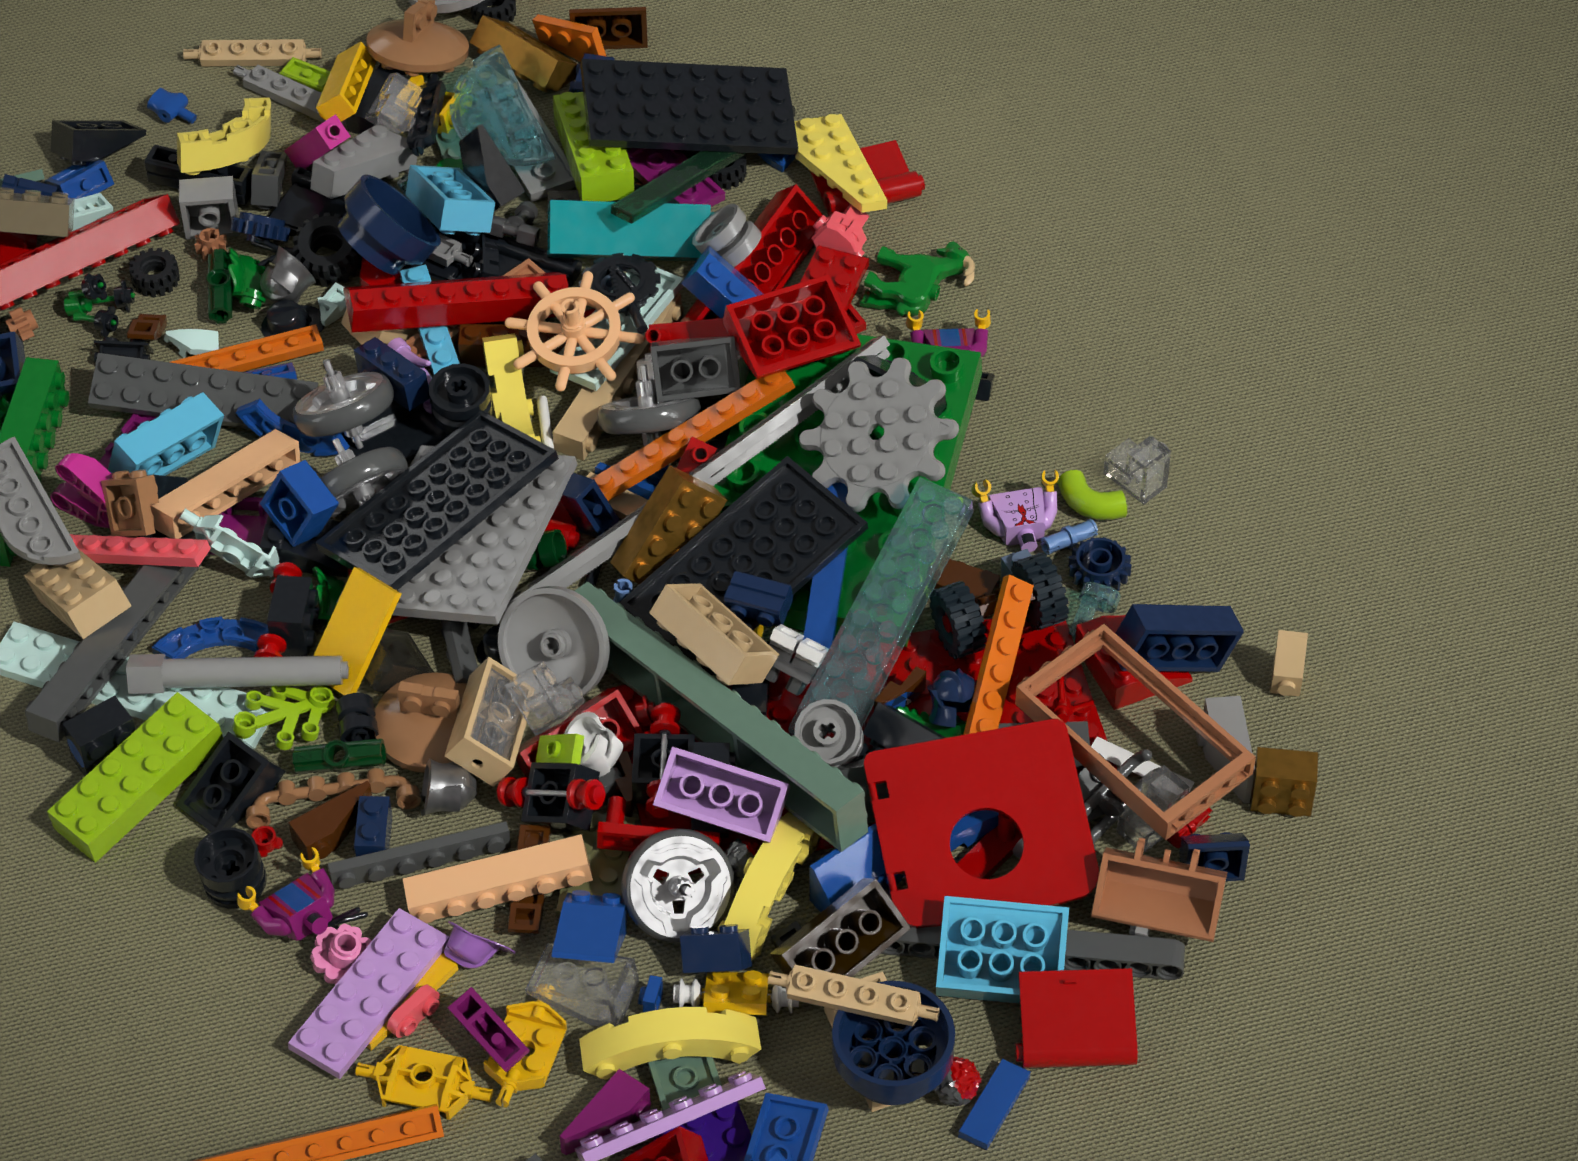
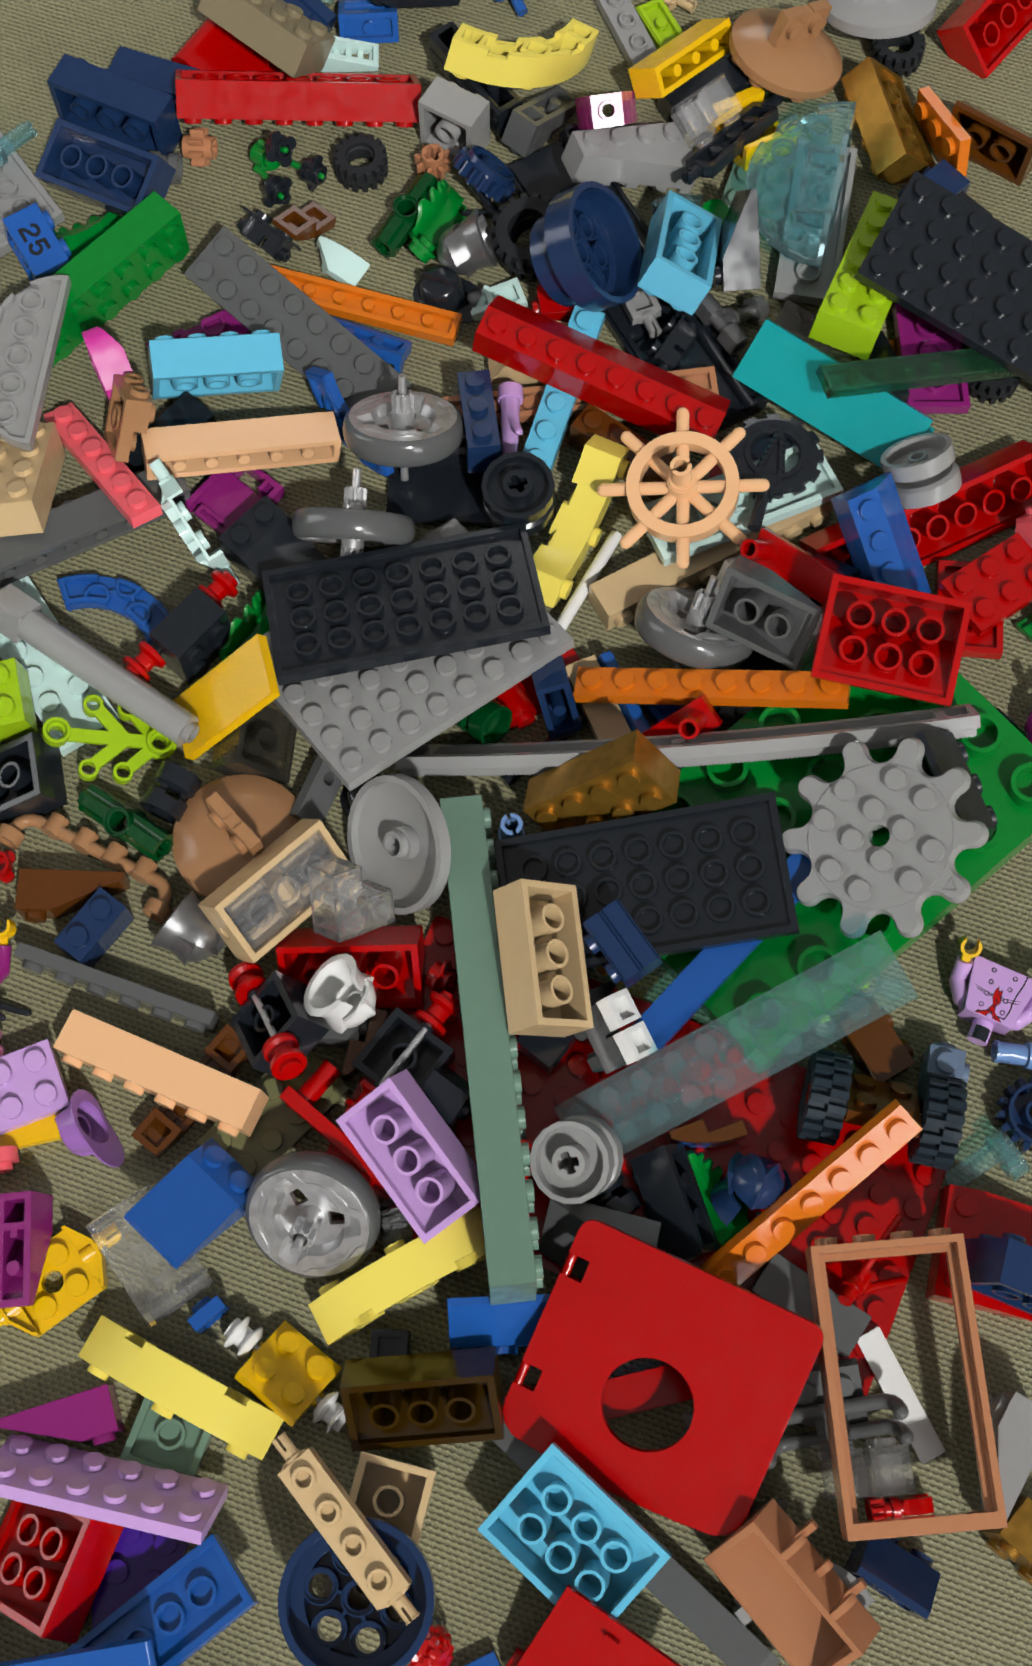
camera: 35 degrees right, 20 degrees up
(299, 503) = (273, 518): blue brick -> none
(560, 748) = (305, 980): lime plate -> none
(715, 950) = (298, 1314): dark blue brick -> none

